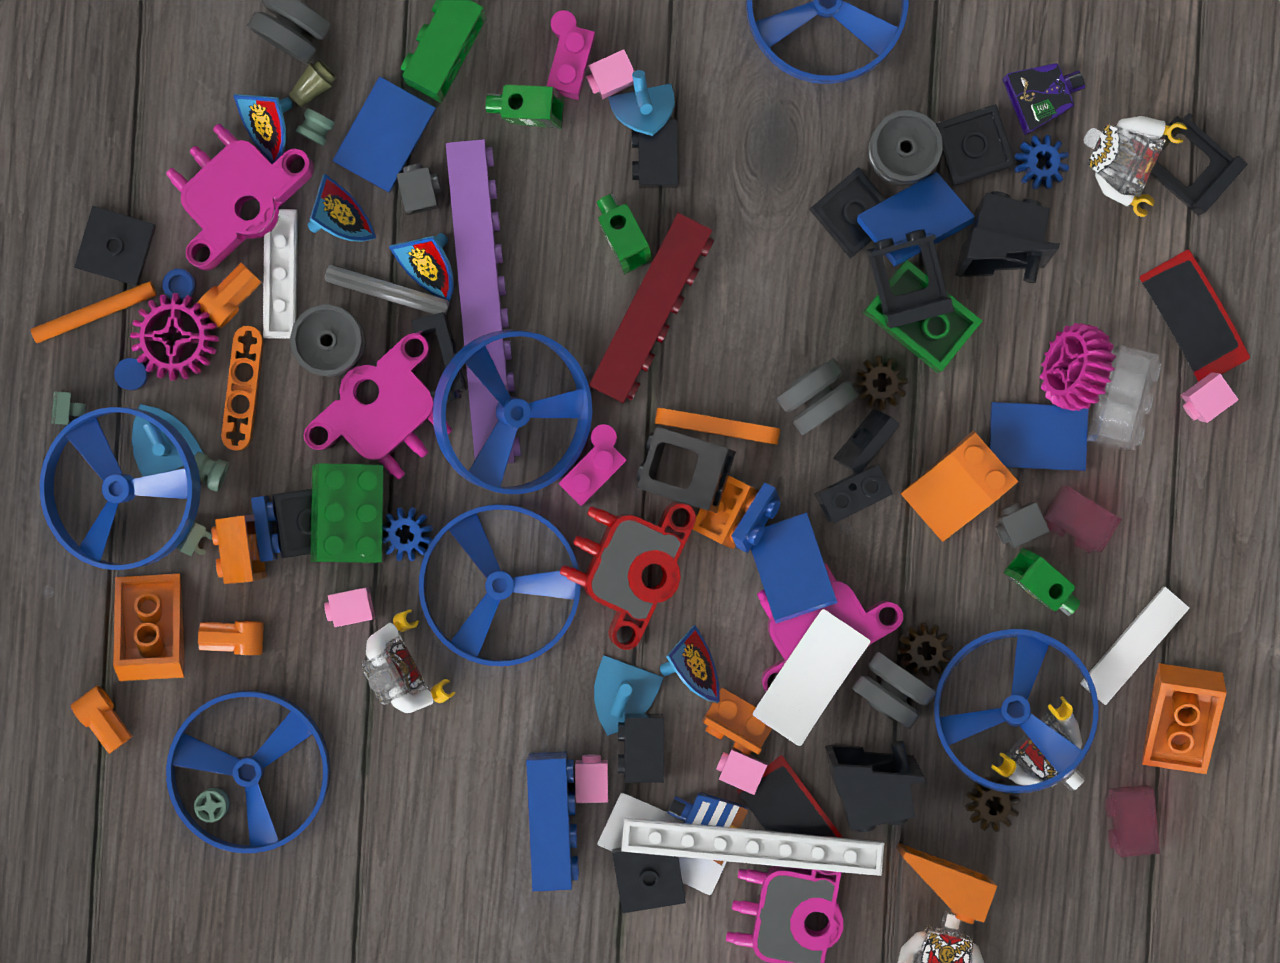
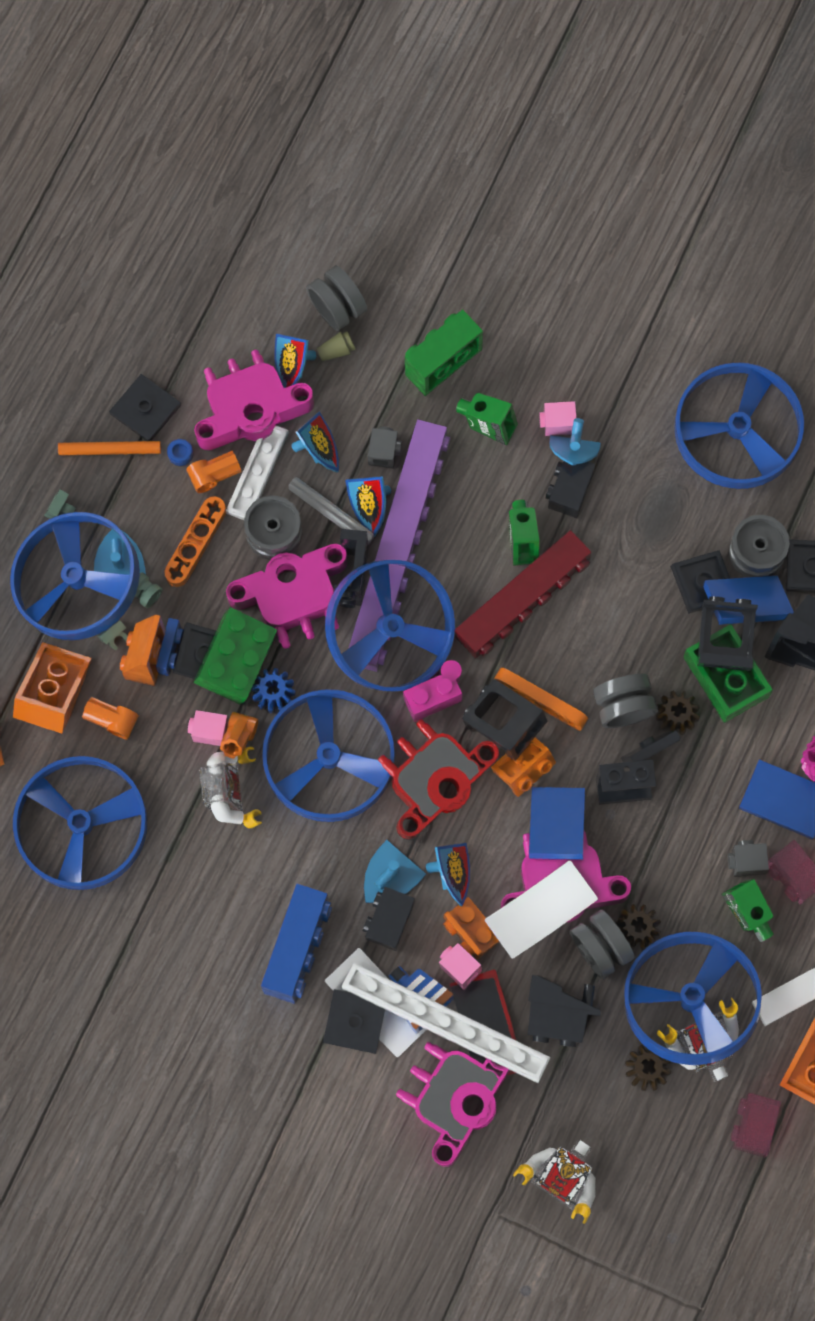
camera: 25 degrees right, 15 degrees down
(131, 374) = (117, 501): blue tile -> none
(174, 322) = (178, 495): dark pink gear -> none
(205, 806) = (40, 832): sand green wheel -> none
(315, 127) = (326, 377): sand green wheel -> none
(384, 134) = (374, 401): blue tile -> none
(387, 599) = (238, 733): none -> orange piece
(571, 55) = (534, 393): dark pink hinge -> none
(591, 779) = (340, 928): bright pink brick -> none
(752, 524) = (544, 775): blue plate -> none
(959, 486) = (710, 811): orange slope -> none
(961, 888) = (594, 1117): orange slope -> none

